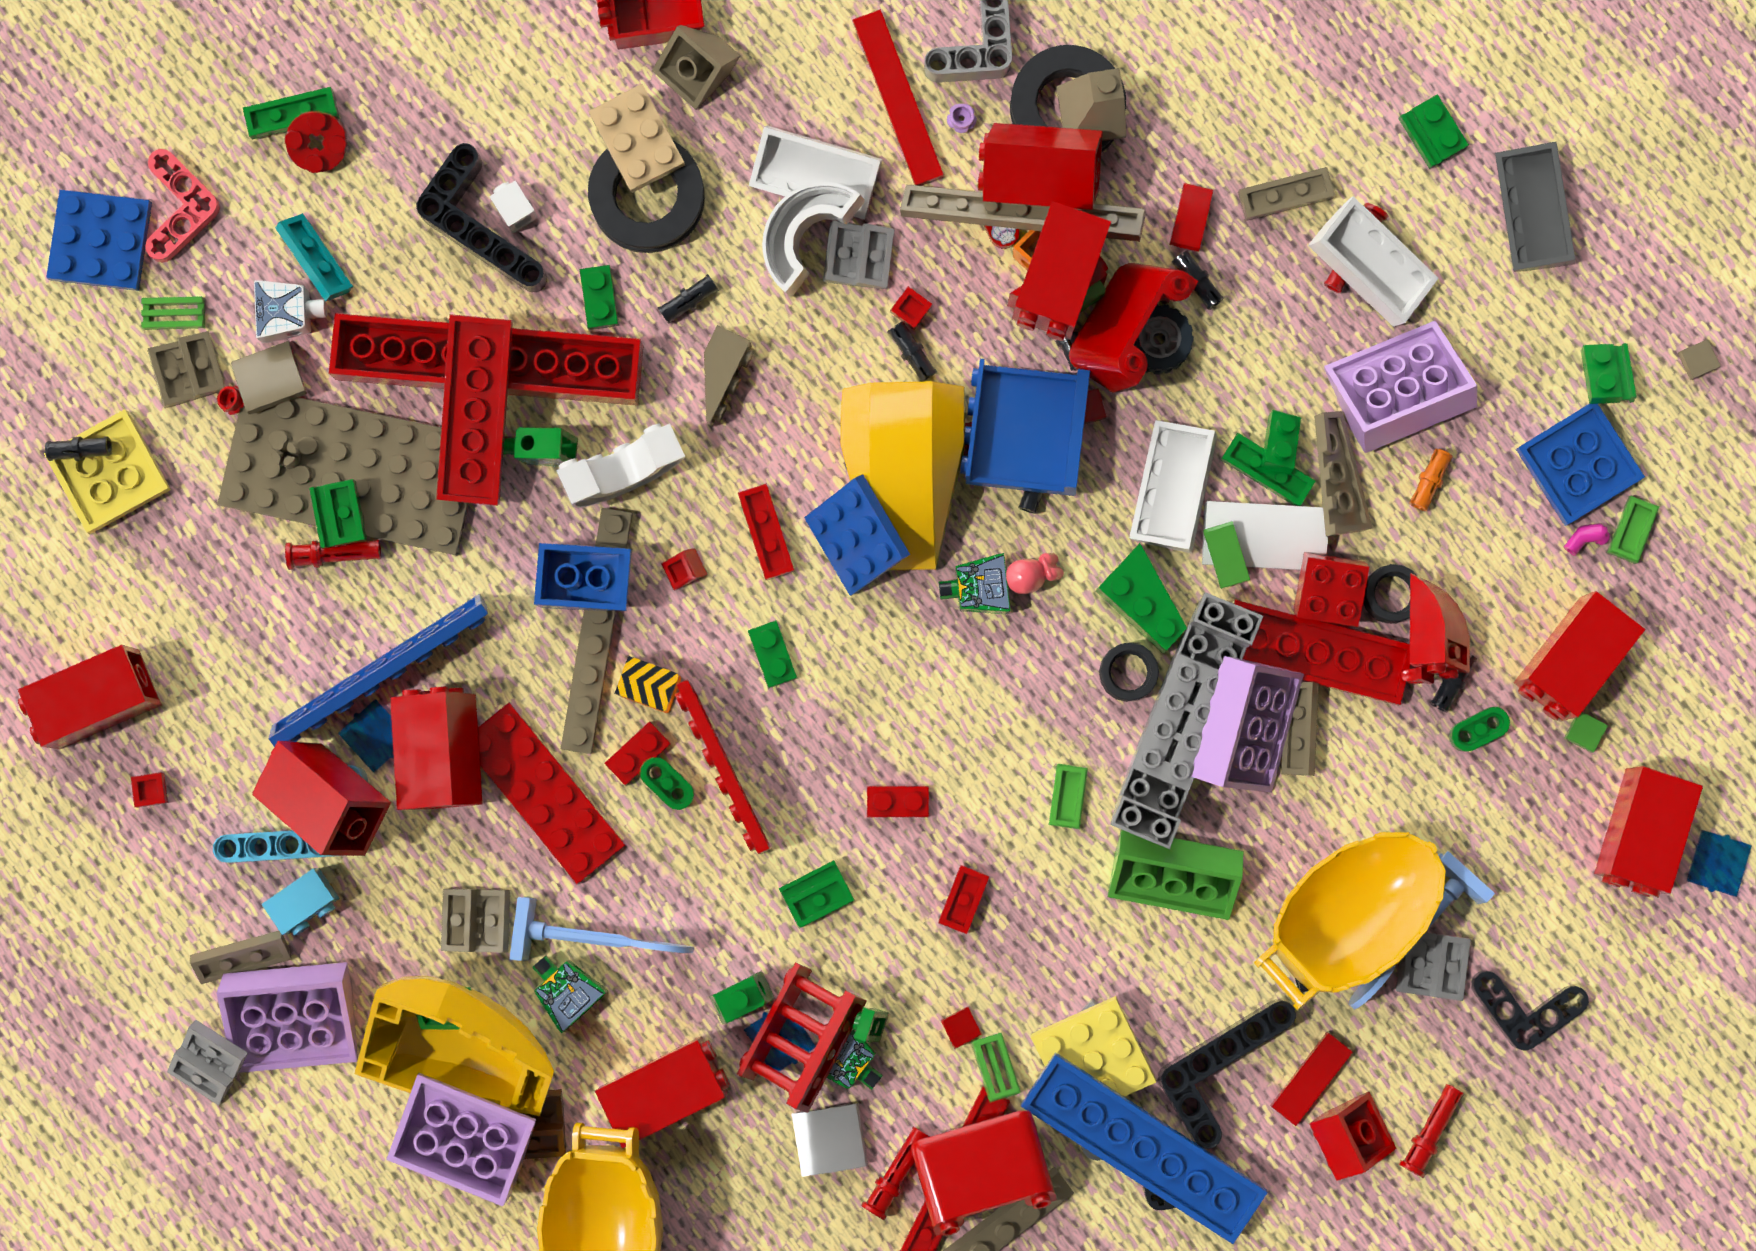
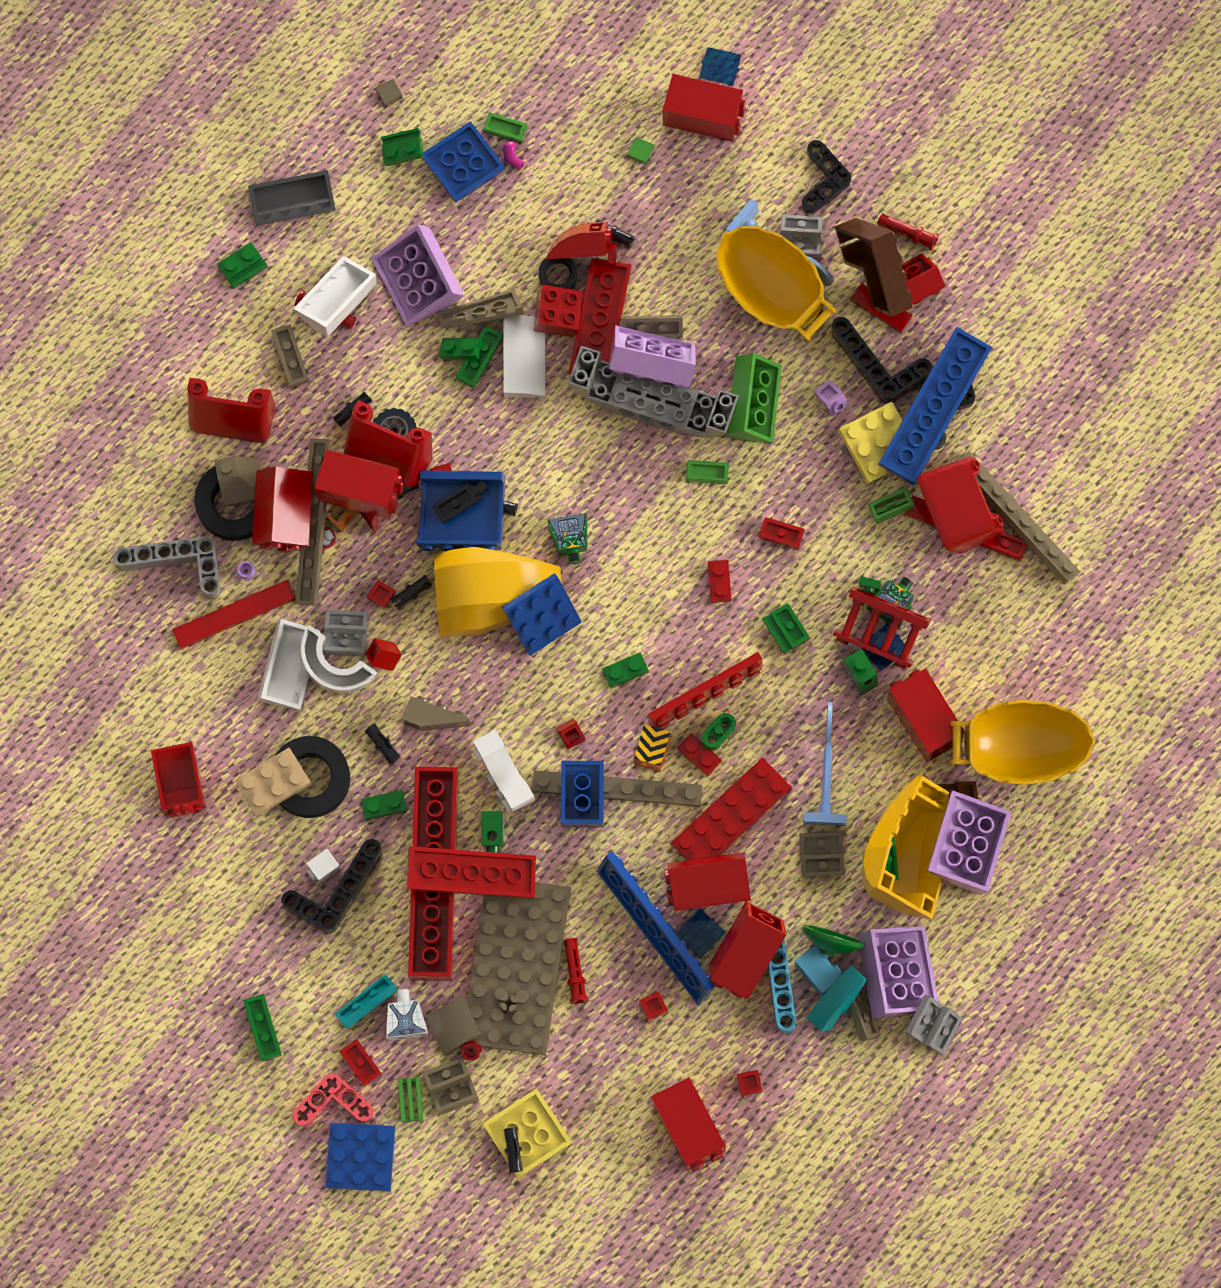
camera: 90 degrees left, 10 degrees down
(229, 245) = (360, 1062): none -> red plate
(249, 924) = (837, 999): none -> teal slope
(267, 659) = (653, 1006): none -> red panel
(298, 141) = (287, 995): red plate -> none
(337, 925) = (831, 941): none -> green dish
(338, 513) = (548, 964): green plate -> none
(566, 991) = (865, 787): torso -> none
(695, 64) = (217, 750): dark tan slope -> none
(766, 532) = (541, 679): red plate -> none
(820, 306) = (383, 654): none -> red panel
(830, 1139) = (948, 608): light grey slope -> none
(888, 1186) = (975, 571): red pin -> none
(961, 1027) = (867, 530): red slope -> none
(1029, 574) = (560, 504): coral piece -> none
(1039, 426) = (460, 501): none -> black hinge
(1133, 649) = (621, 452): black tyre -> none
(1143, 600) = (572, 430): green wedge -> none
(1171, 990) = (831, 397): none -> lavender bracket
(1173, 486) = (493, 416): white slope -> none
(1185, 132) = (230, 418): none -> red windscreen
(1191, 217) = (309, 415): red slope -> none
(1226, 554) = (538, 379): bright green tile -> none
(1380, 1081) = (880, 261): none -> reddish brown piece
(1431, 479) = (479, 254): orange pin -> none
(1478, 729) = (644, 216): green plate -> none
(1578, 657) = (592, 155): red brick -> none

